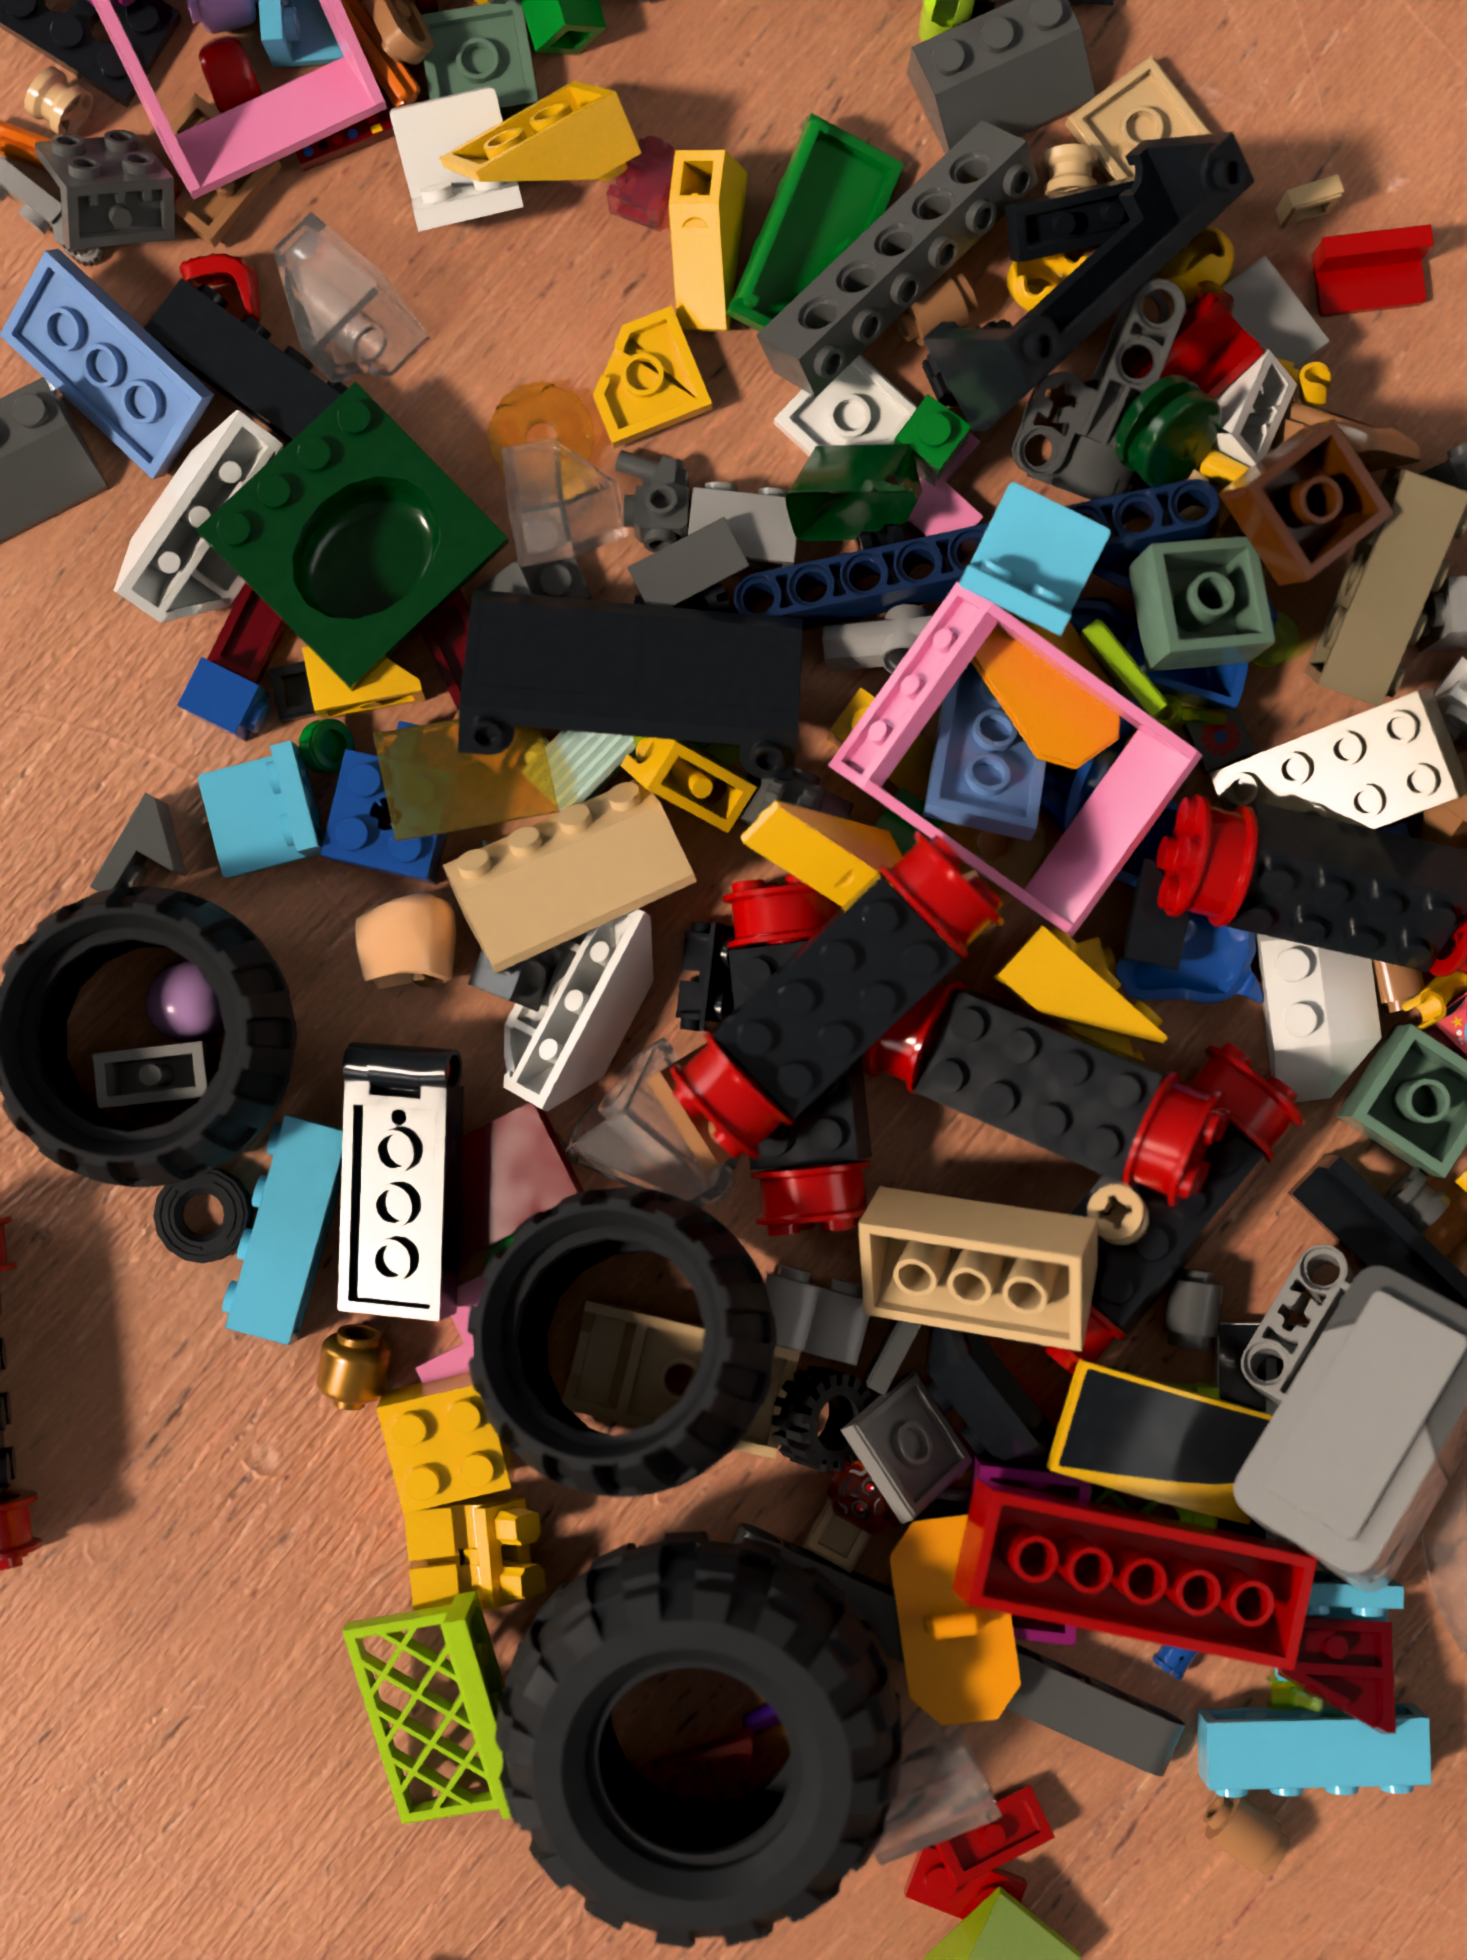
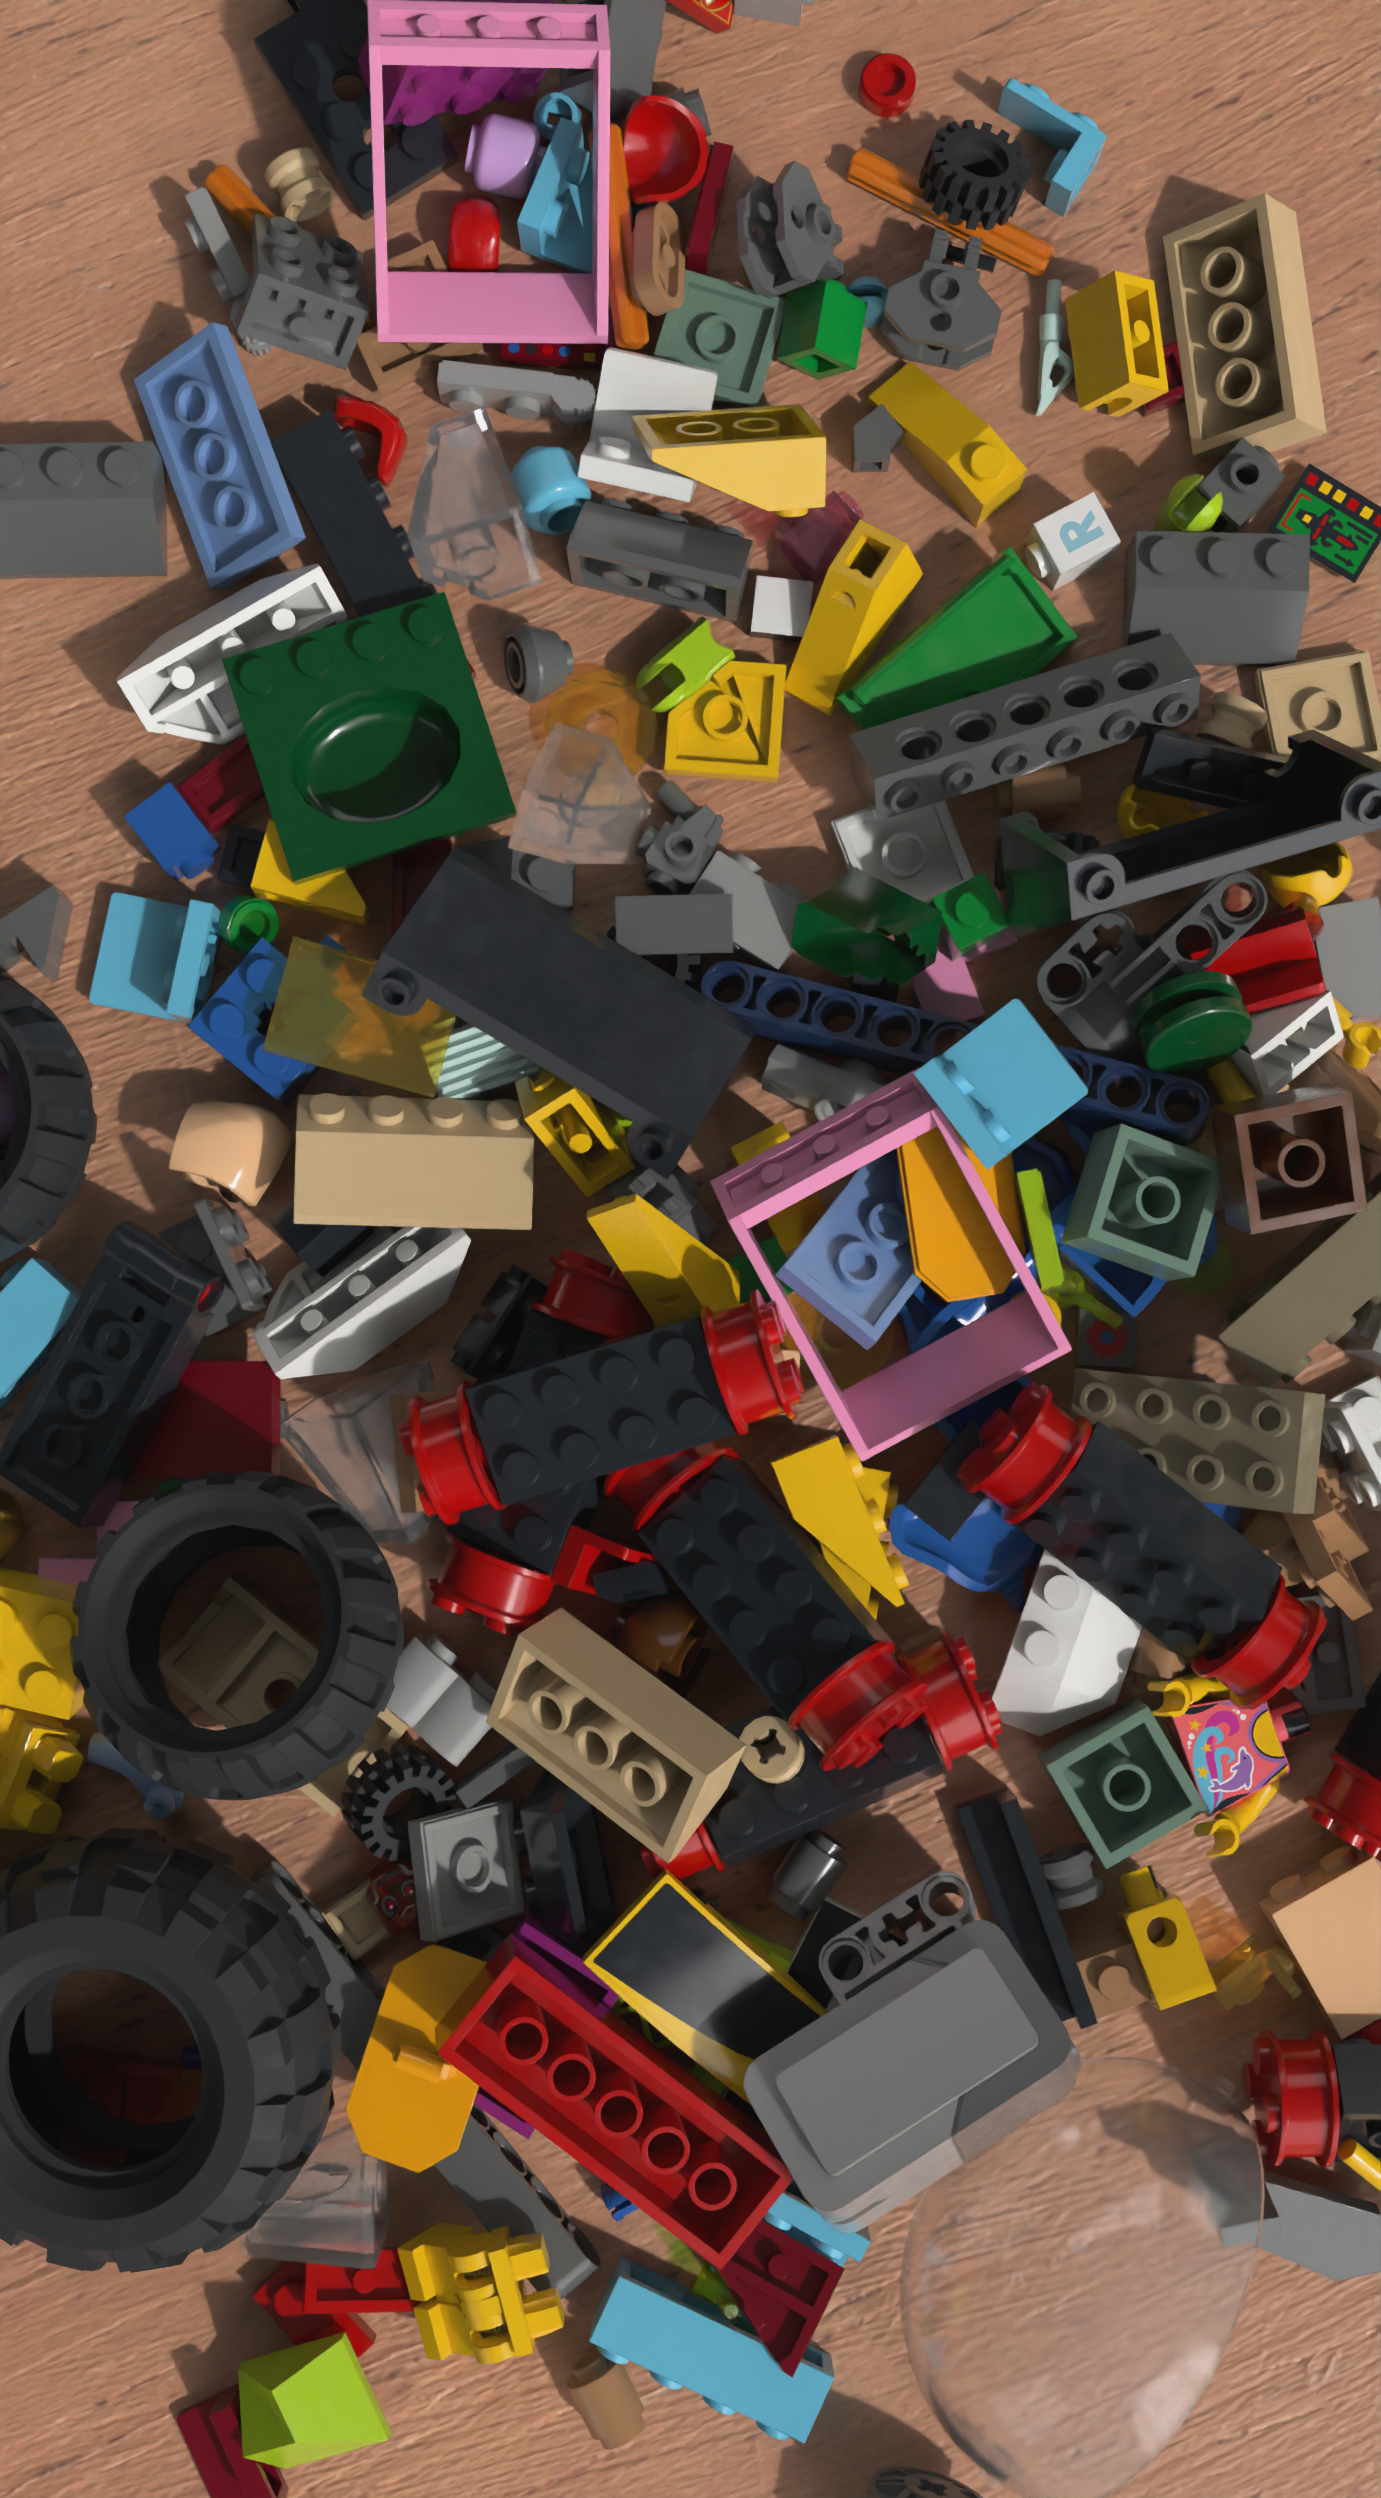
camera: 25 degrees right, 0 degrees up
(330, 187) = (516, 391): none -> light grey hinge
(401, 253) = (550, 489): none -> medium azure head
(431, 1023) = (216, 1241): none -> dark grey bracket
(459, 406) = (536, 662): none -> dark grey cone
(522, 268) = (660, 559): none -> dark grey slope
(586, 346) = (685, 664): none -> lime piece
(615, 1513) = (158, 1798): none -> light blue arm
(643, 261) = (781, 608): none -> white tile
(651, 82) = (874, 440): none -> dark grey piece
(716, 52) = (951, 443): none -> yellow slope
(859, 85) = (1071, 542): none -> white brick
(894, 1133) = (592, 1553): none -> red panel
(929, 1135) = (632, 1583): none -> black tile
(977, 1166) = (665, 1639): none -> reddish brown cylinder
(1094, 1796) = (478, 2292): none -> yellow hips

